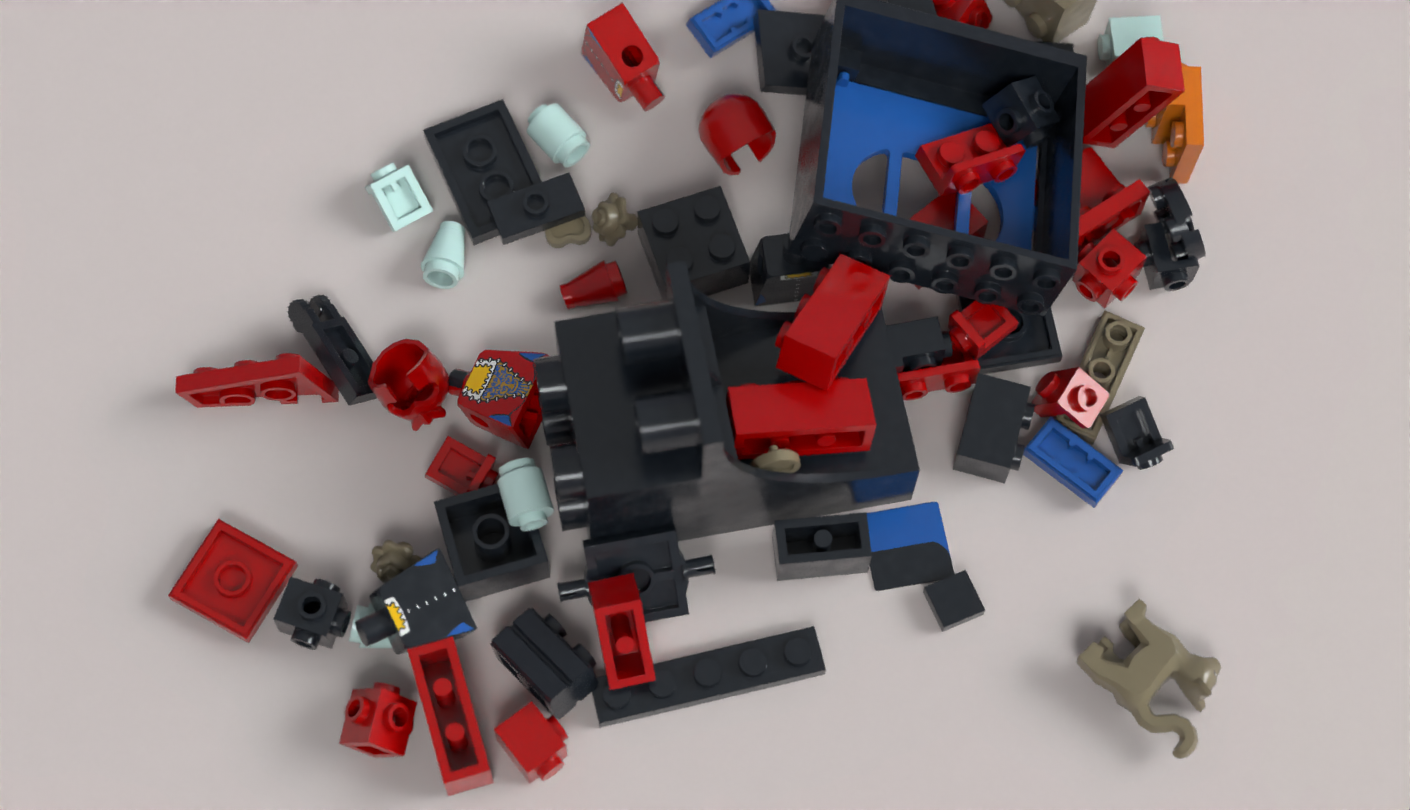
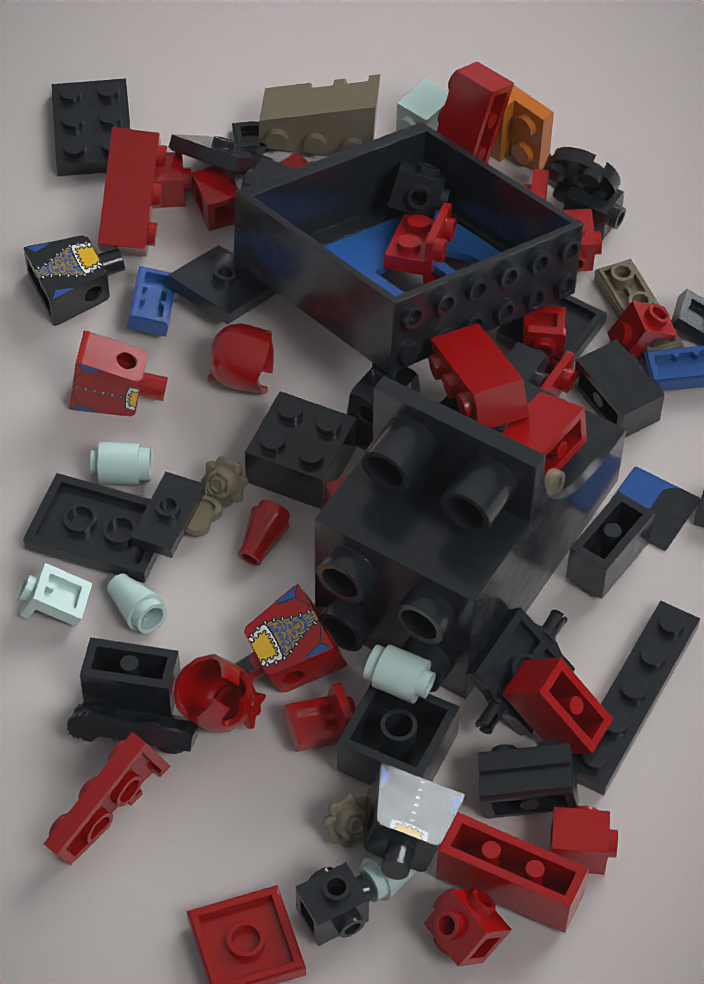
camera: 45 degrees left, 15 degrees down
(368, 306) = (129, 675): none -> black brick

